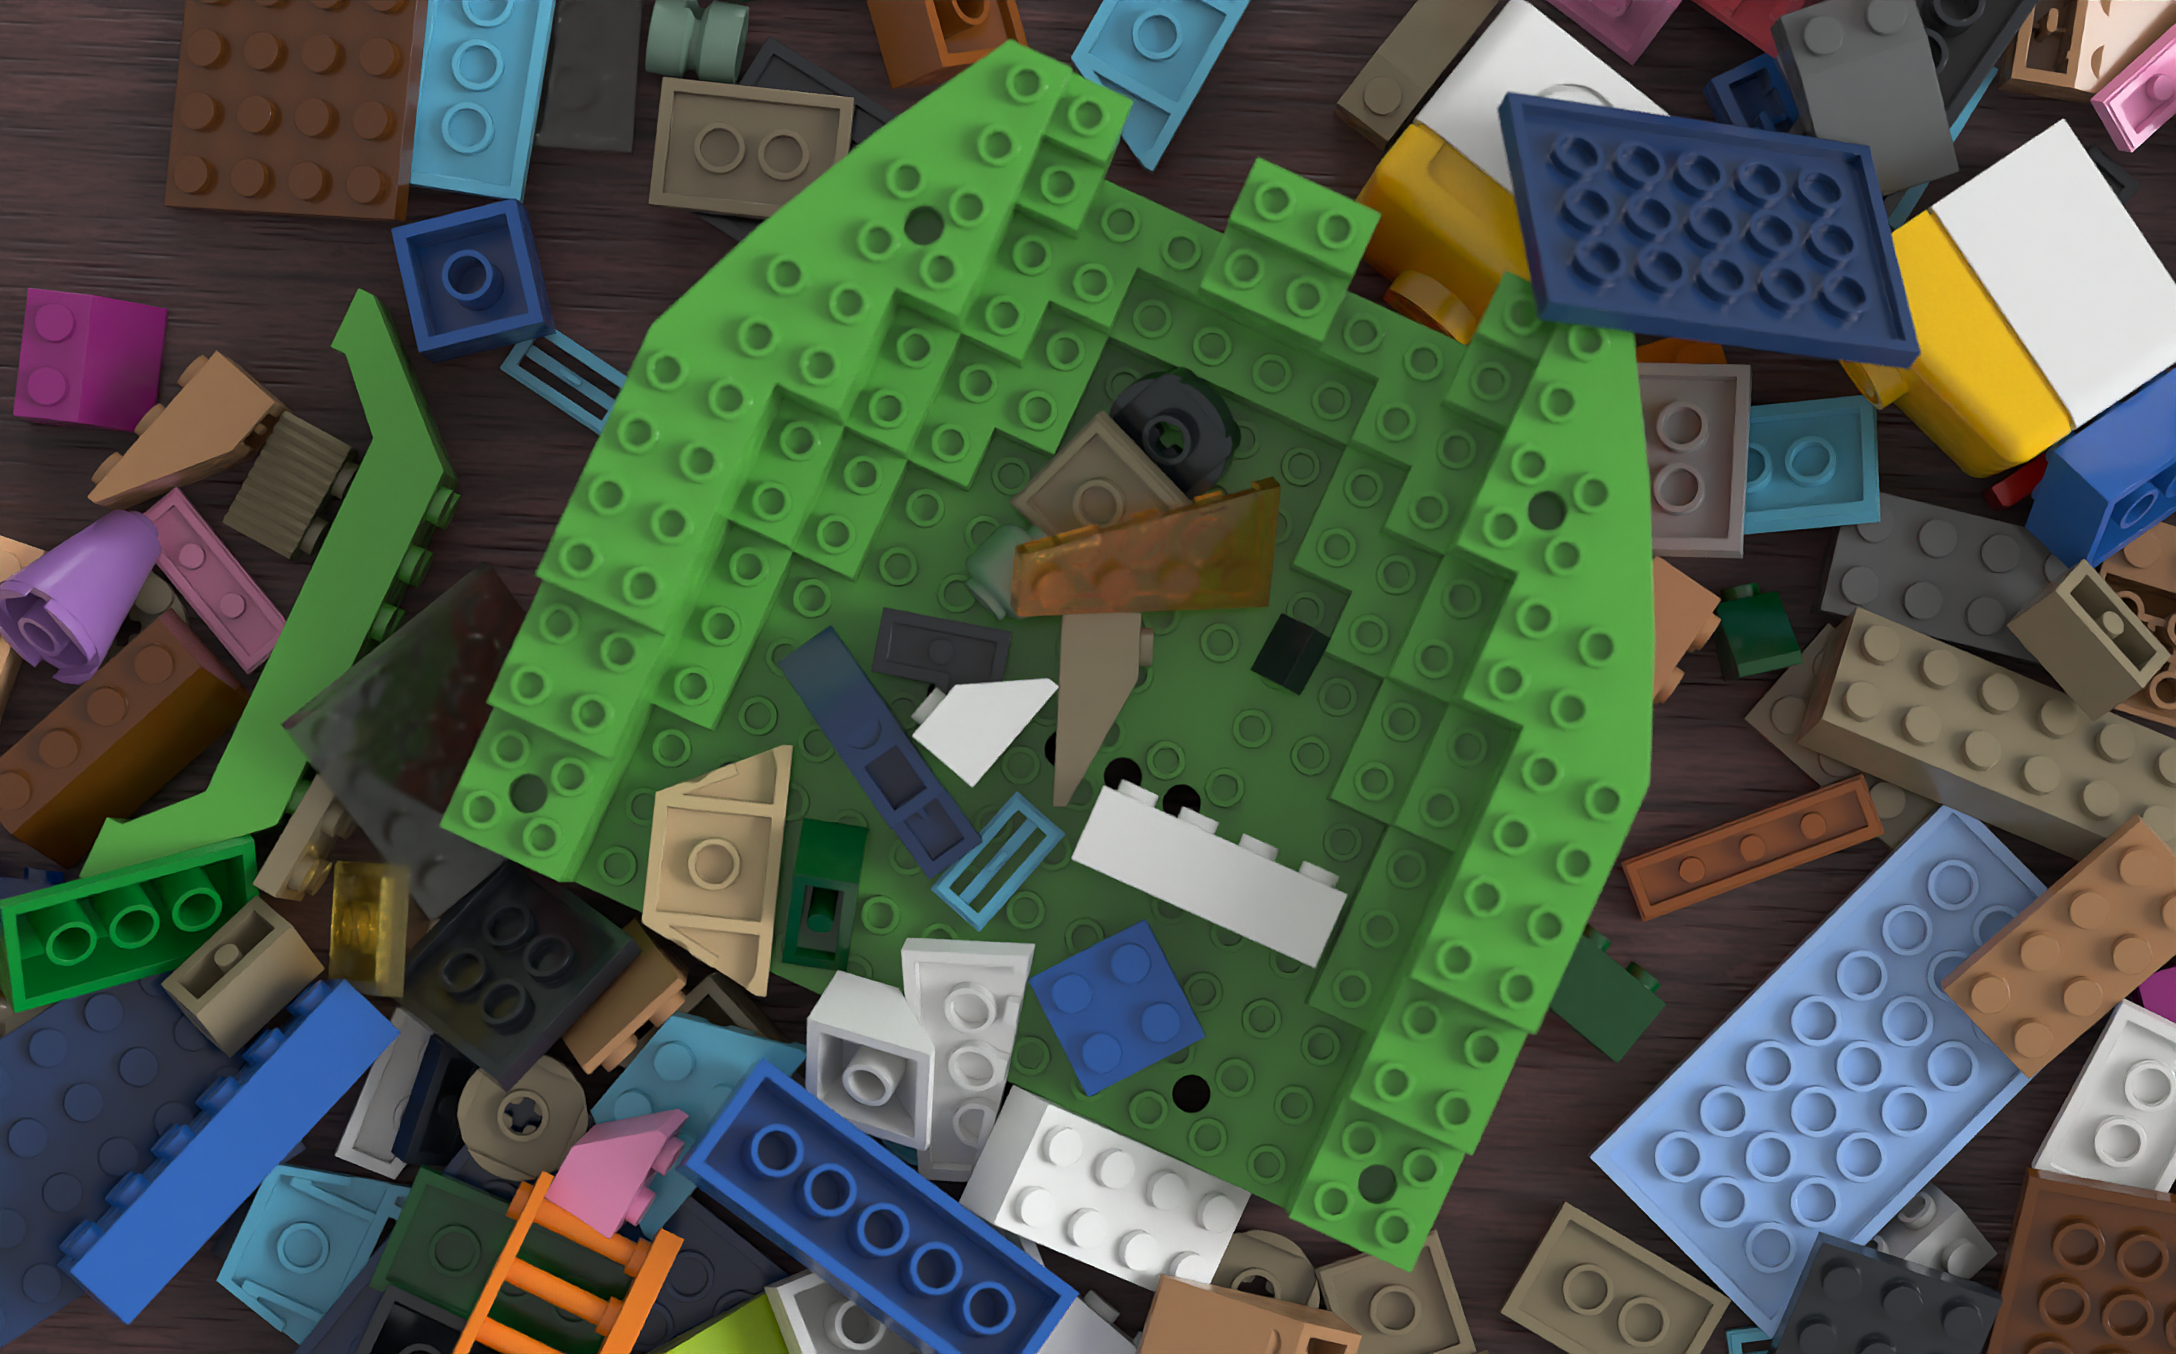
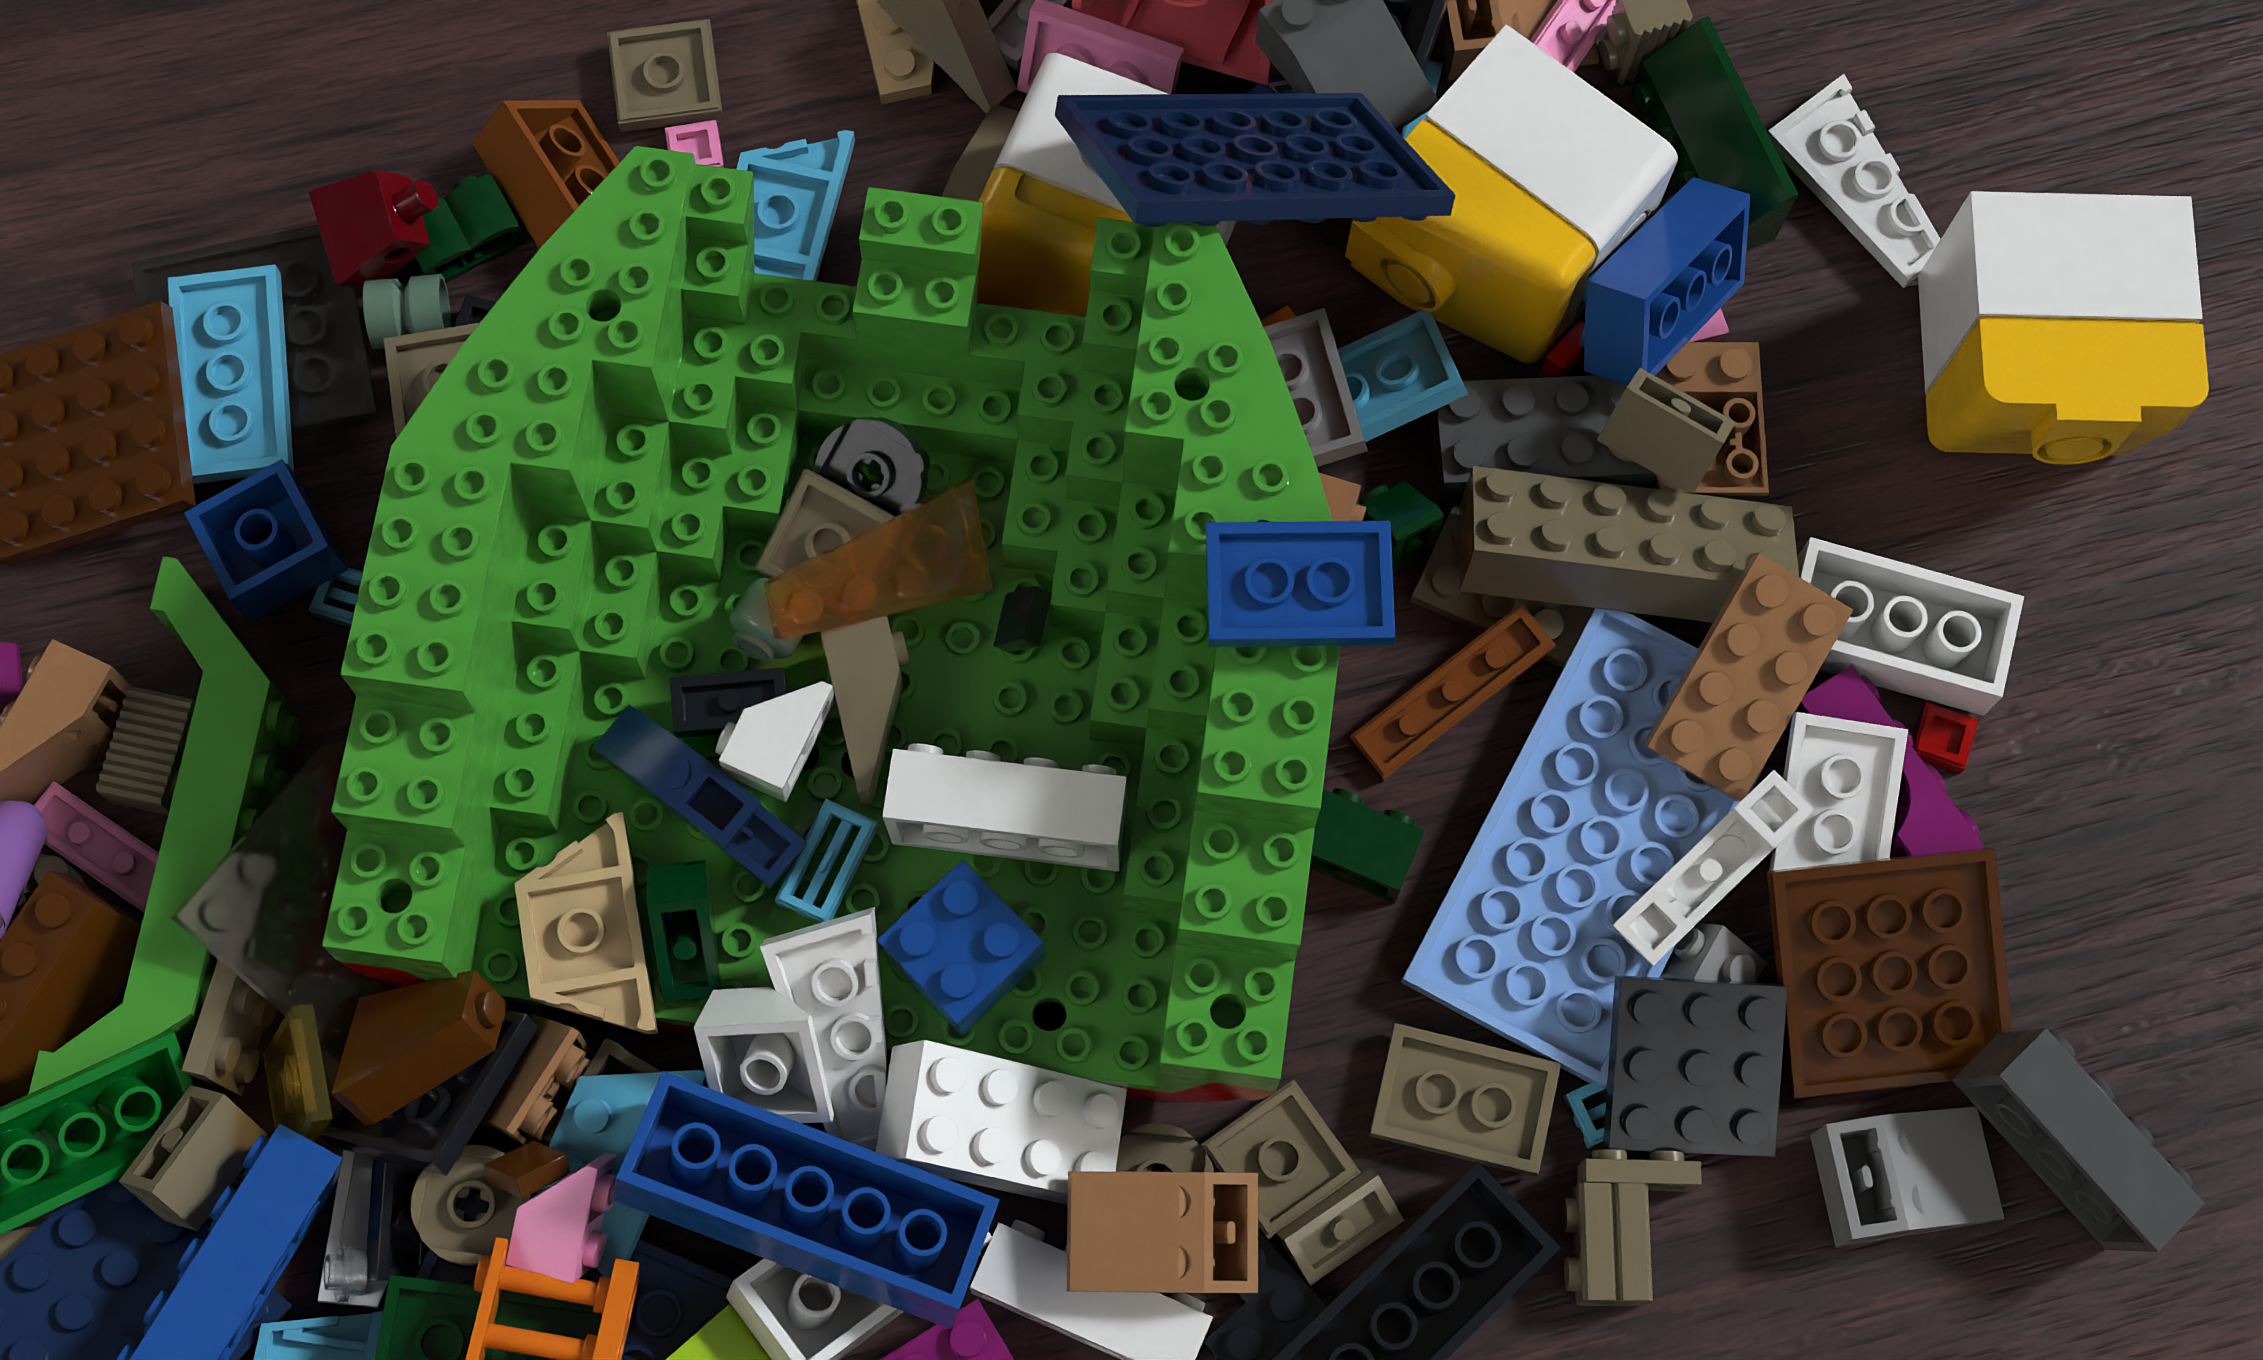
camera: 15 degrees left, 15 degrees down
(373, 1140) = (346, 1271): none -> clear plate
(507, 930) = (415, 1041): none -> reddish brown slope
(592, 1103) = (527, 1169): none -> reddish brown tile
(1590, 788) = (1299, 583): none -> blue plate
(1967, 1144) = (1712, 868): none -> white slope

